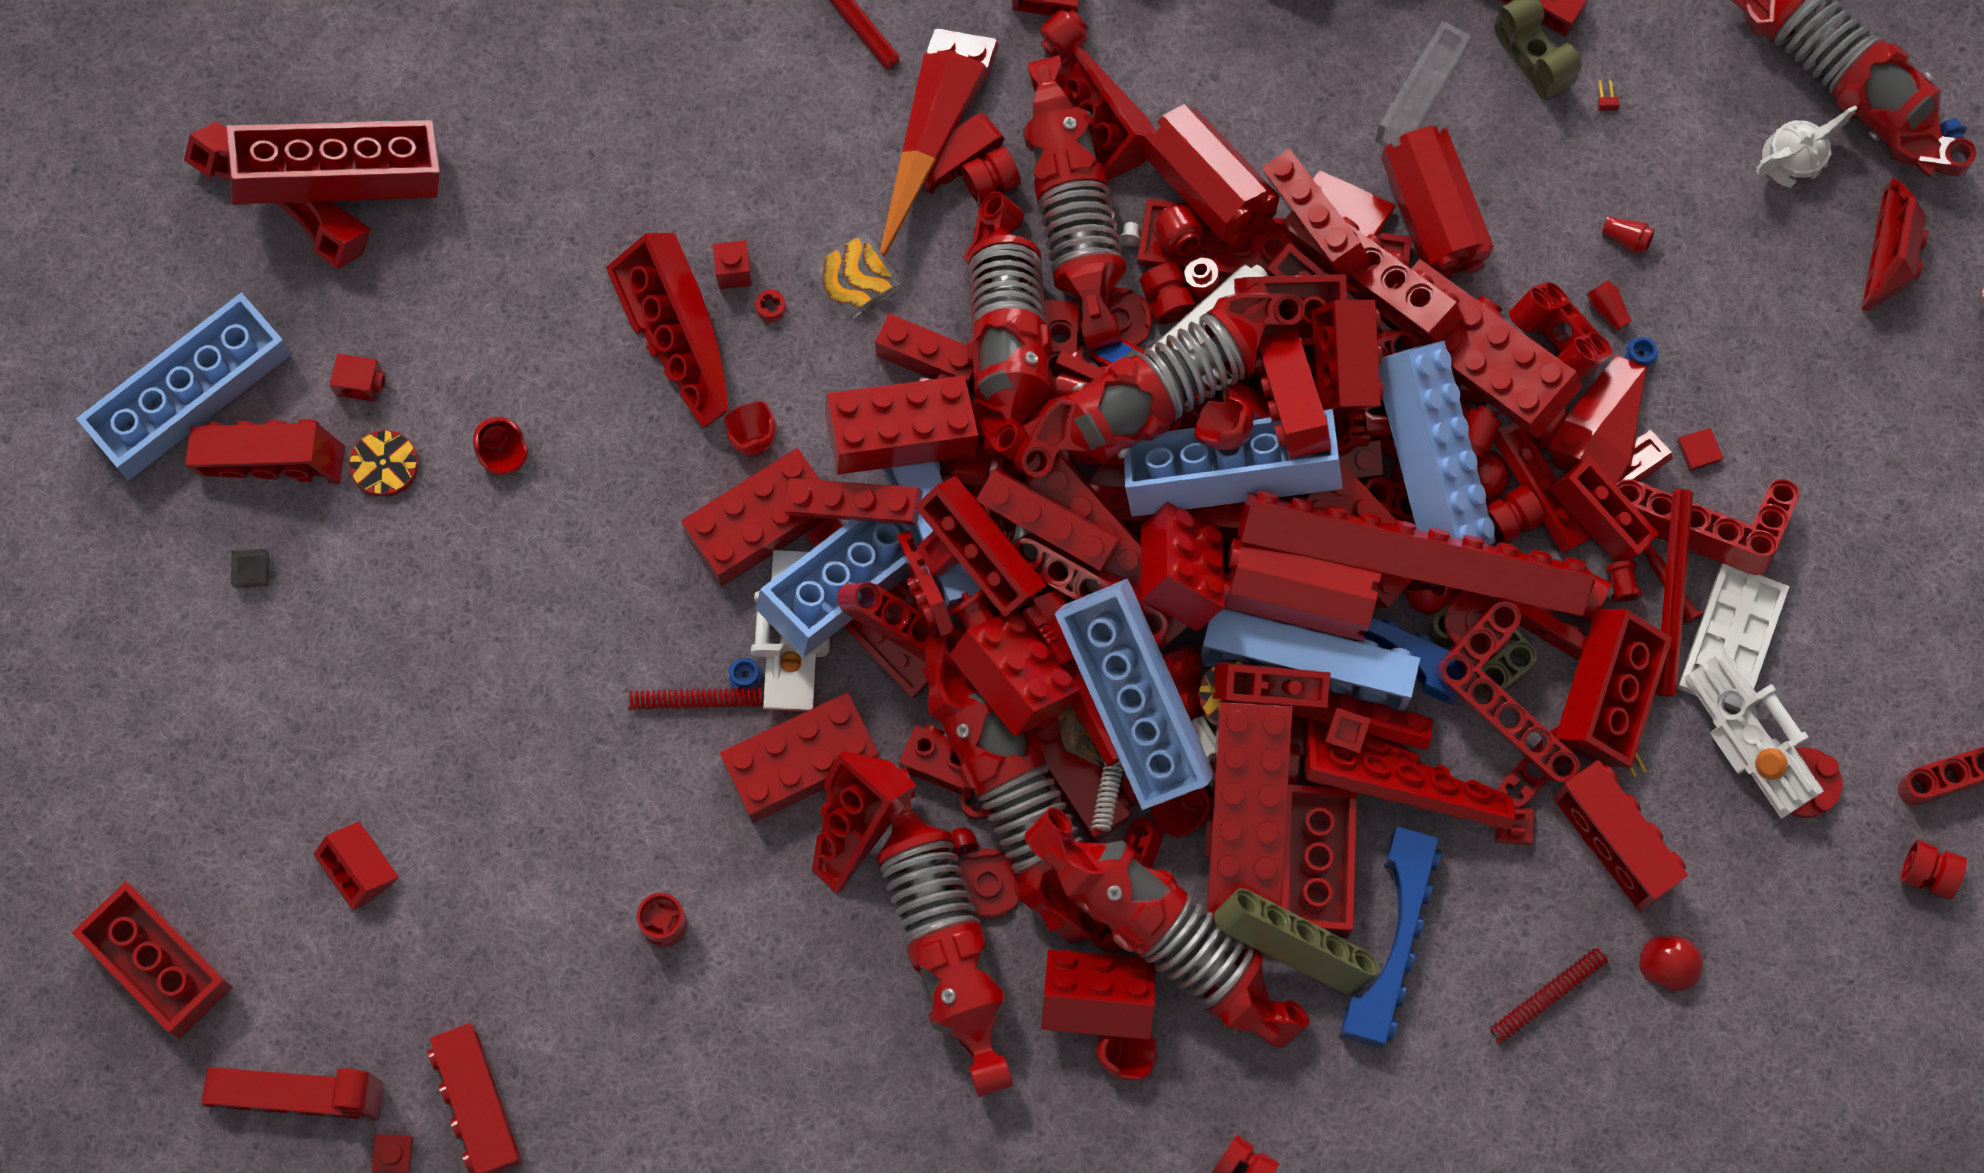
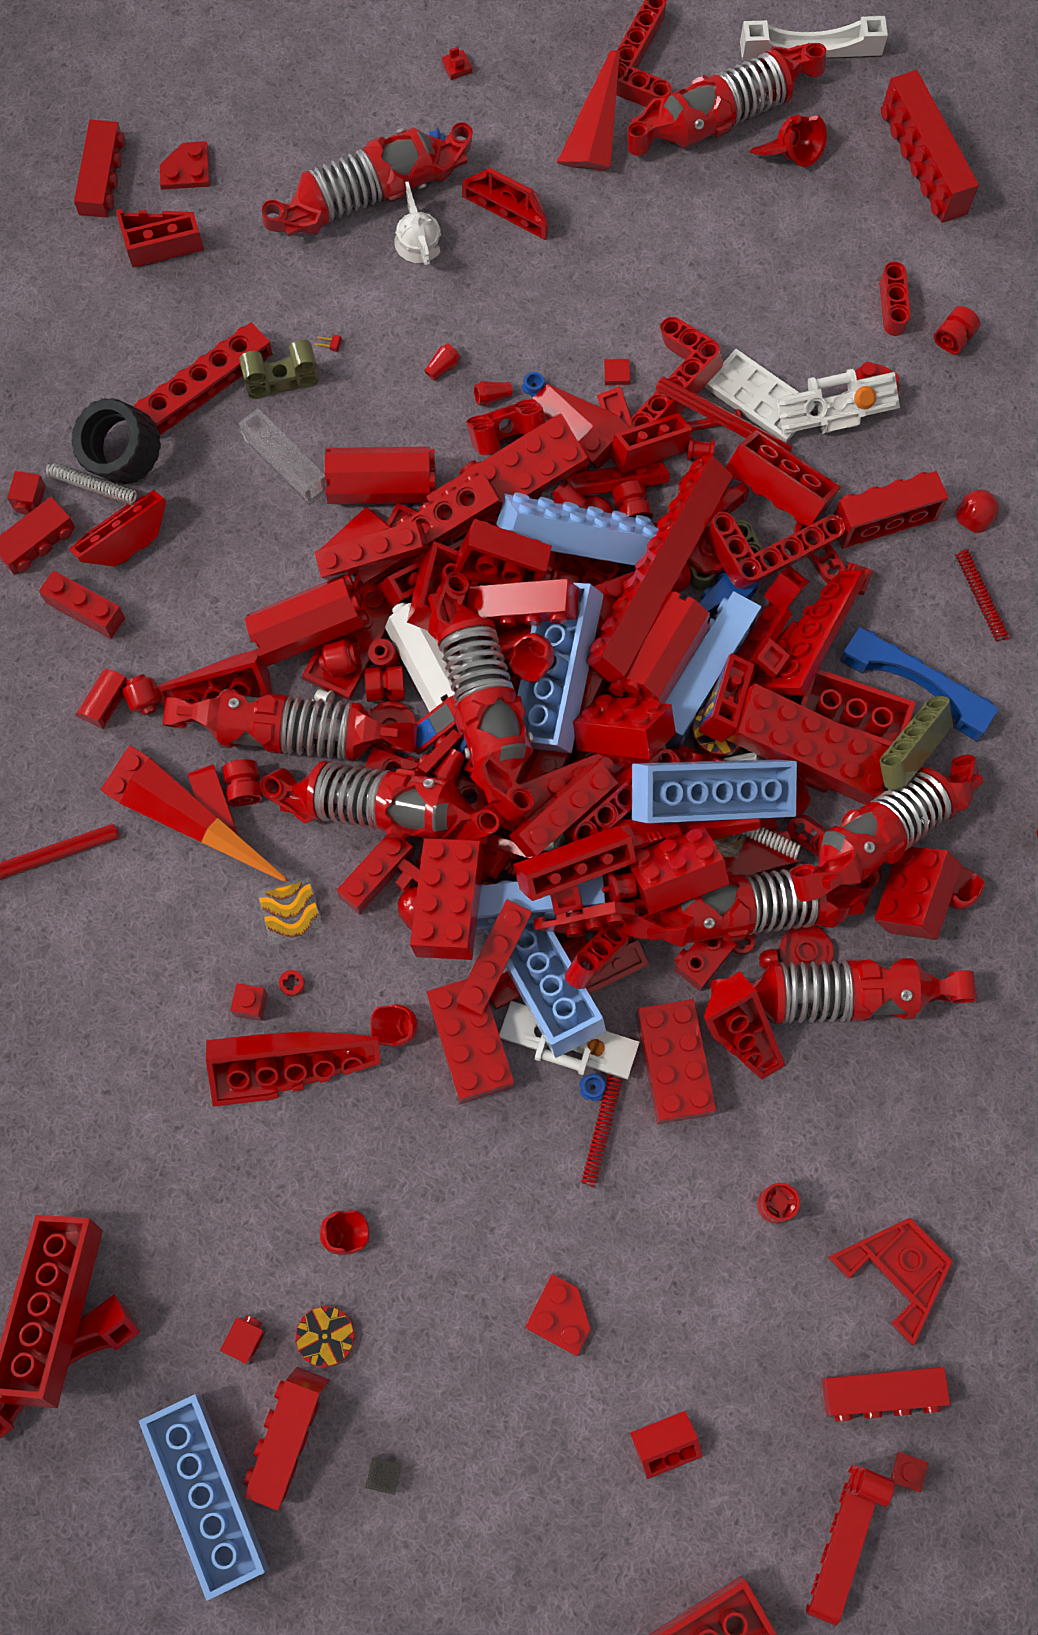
camera: 75 degrees left, 0 degrees up
(470, 710) = (560, 1316): none -> red plate
(635, 1096) = (908, 1262): none -> red wing
(1461, 734) = (786, 588): none -> red brick

